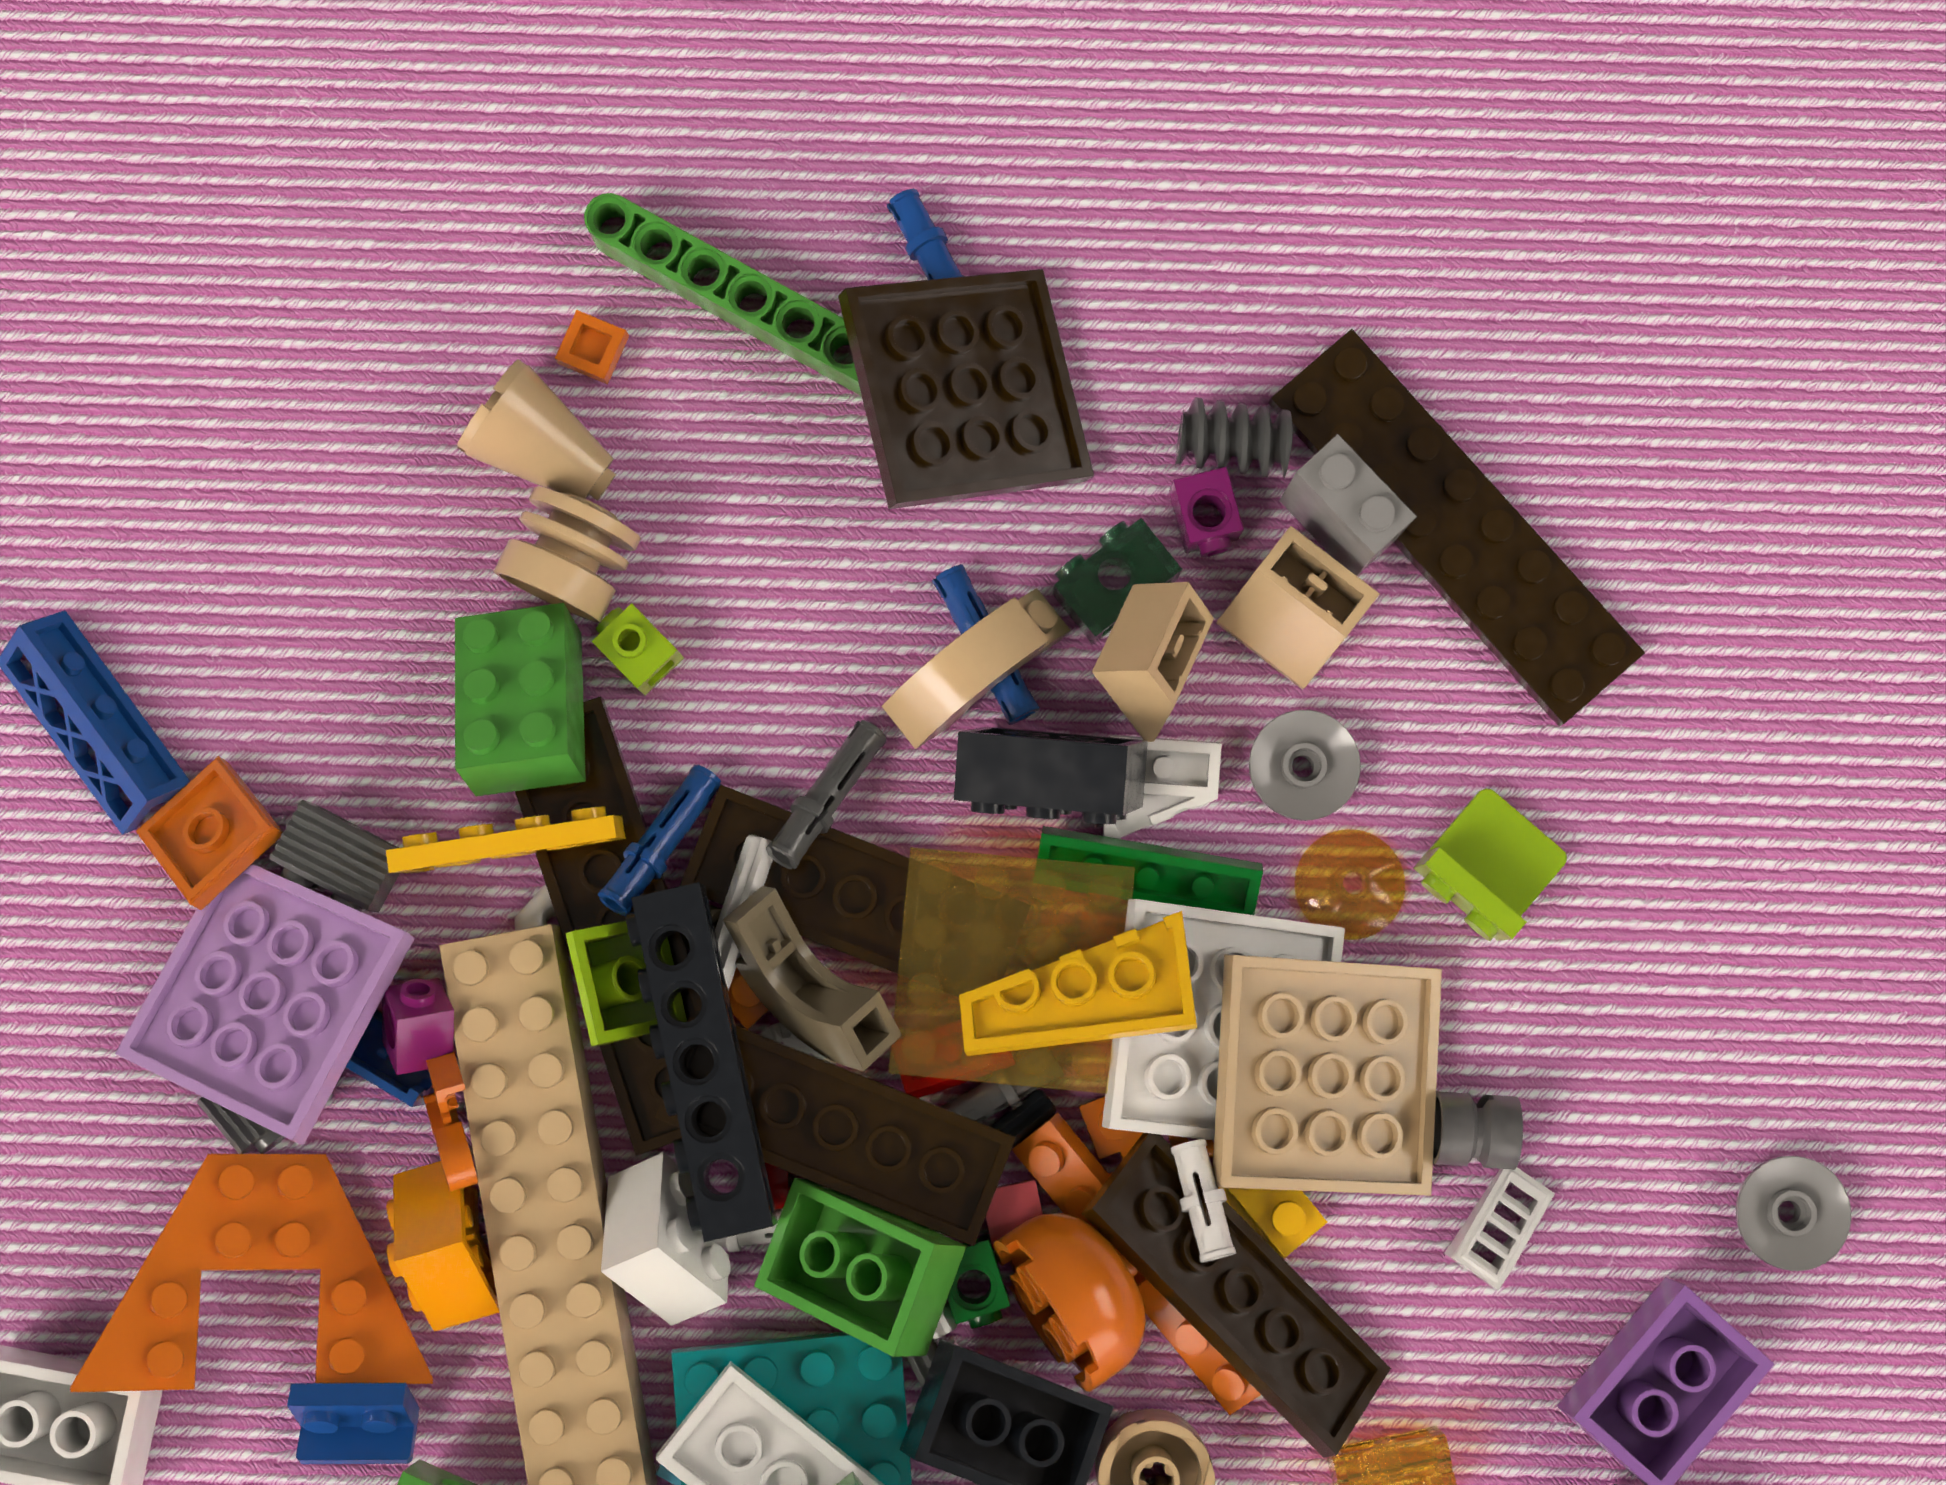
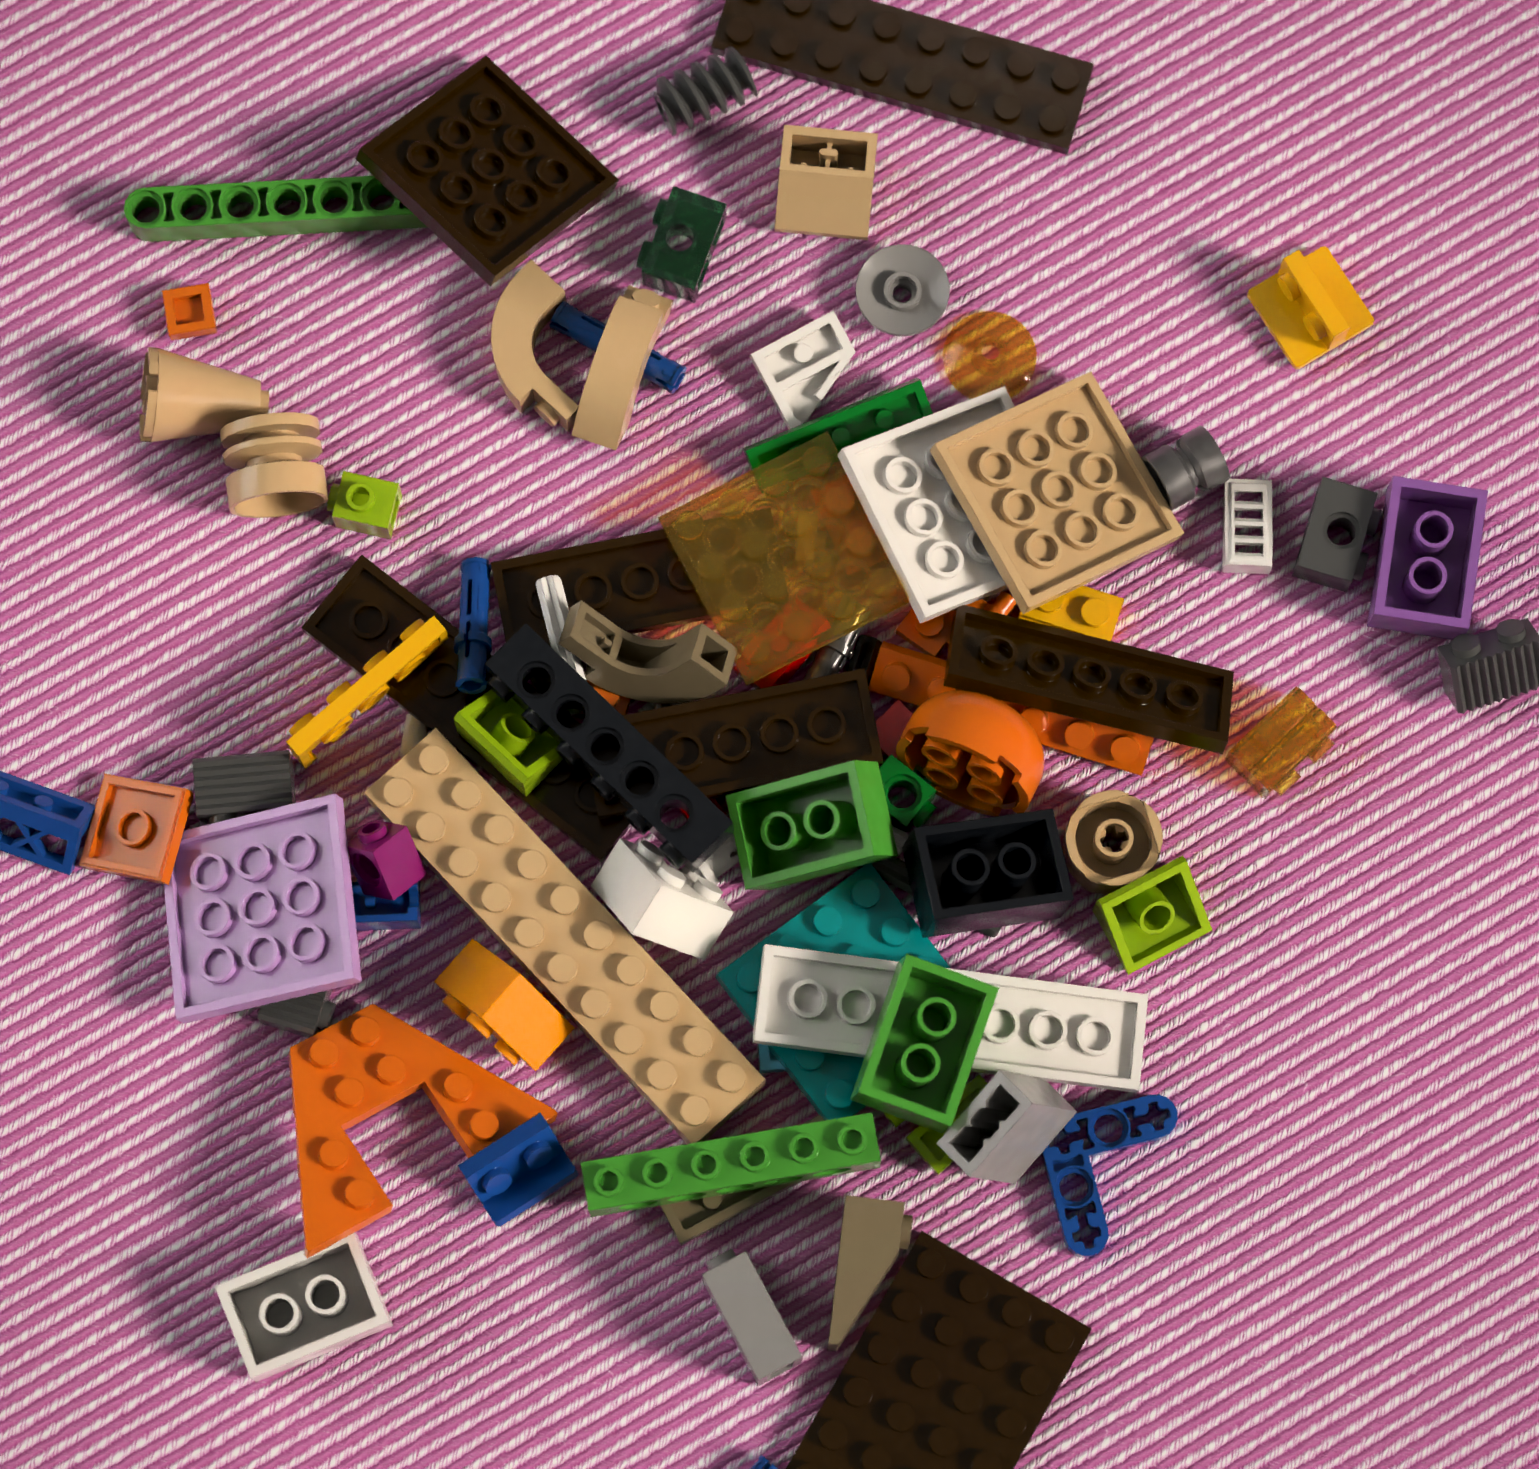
camera: 35 degrees left, 5 degrees down
(445, 1123) = (464, 924): orange piece -> none
(519, 700) = (307, 587): bright green brick -> none
(814, 811) = (572, 535): dark grey pin -> none
(893, 564) = (516, 324): none -> tan arch
(924, 240) = (385, 86): blue pin -> none
(1050, 773) = (725, 400): black brick -> none
(1095, 994) = (862, 522): yellow wing -> none
(1152, 652) = (744, 271): tan slope -> none
(1206, 488) = (711, 137): magenta brick -> none
(1212, 1240) = (1045, 646): white pin -> none
(1346, 506) = (814, 87): light grey brick -> none
(1491, 865) = (1080, 278): lime bracket -> none
(1552, 1298) = (1344, 507): none -> dark grey brick
(1707, 1041) = (1310, 306): none -> yellow bracket
(1819, 1217) = (1459, 372): light grey dish -> none

